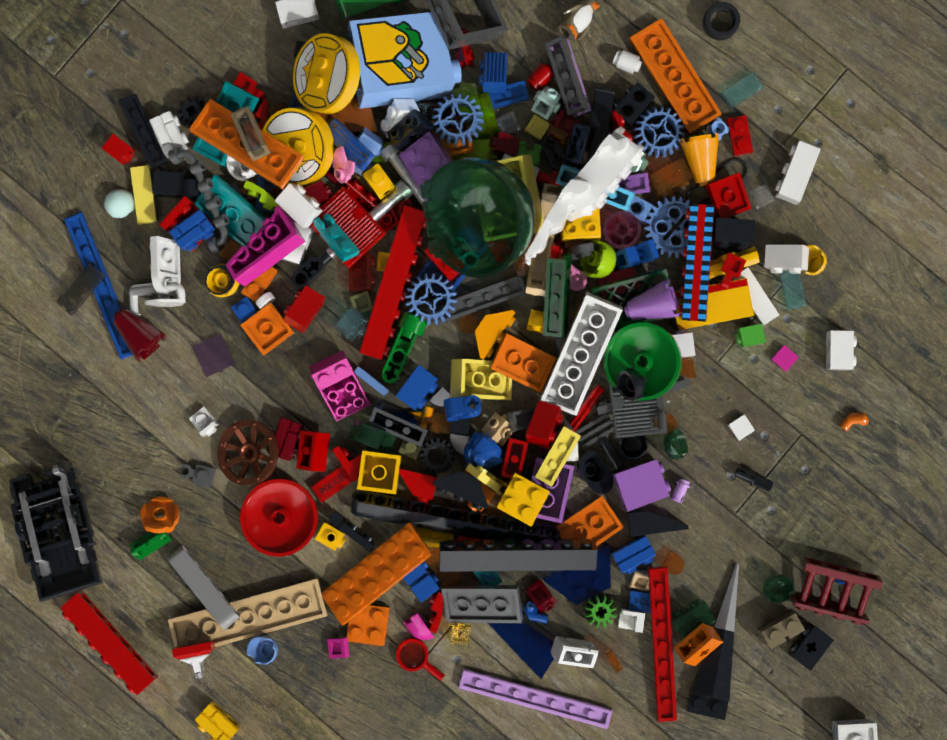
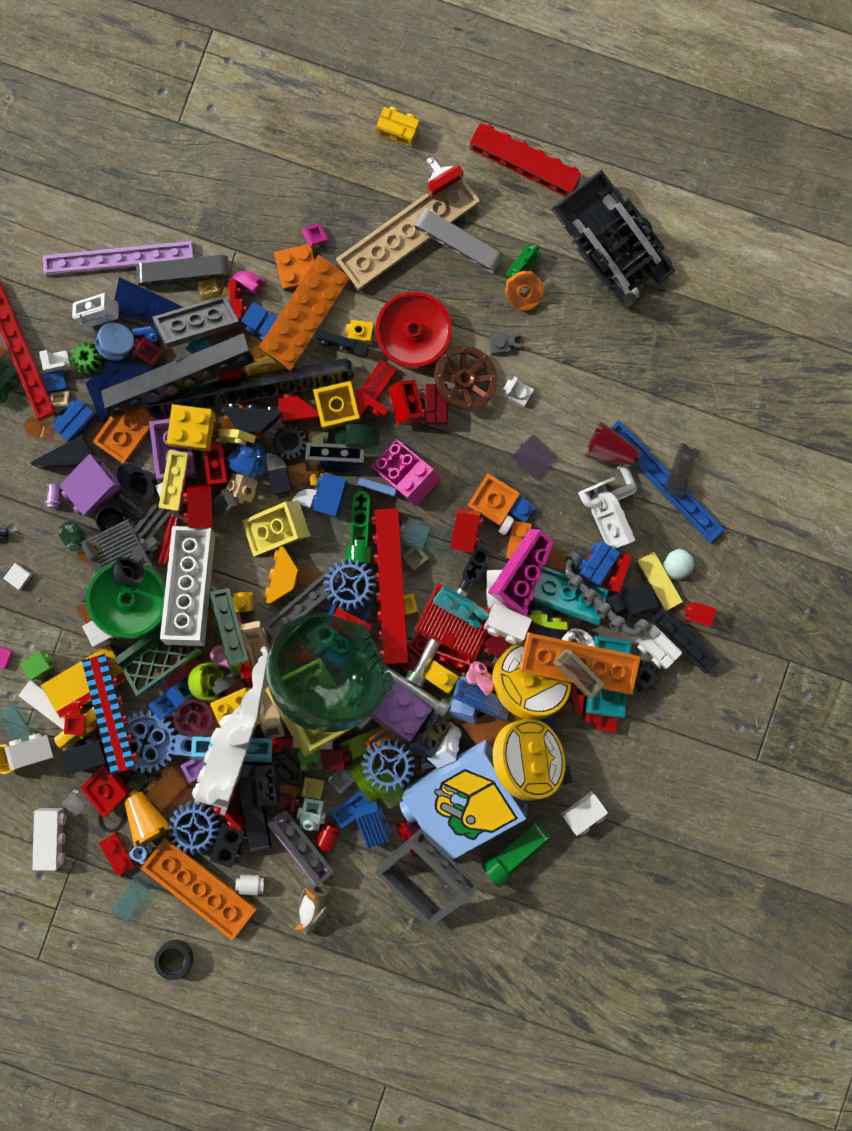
camera: 165 degrees right, 0 degrees up
(220, 281) = (556, 527): yellow piece -> none
(262, 649) = (382, 206): medium blue hair -> none
(361, 273) = (425, 583): clear red bracket -> none
(413, 656) = (244, 253): piece -> none
(459, 407) = (284, 491): blue piece -> none
(477, 661) = (182, 270): none -> dark grey beam
(522, 362) = (242, 557): orange plate -> none
(567, 615) = (114, 341): none -> medium blue head
(614, 661) = (57, 317): clear orange tile -> none
(654, 303) = (136, 658): medium lavender cone -> none

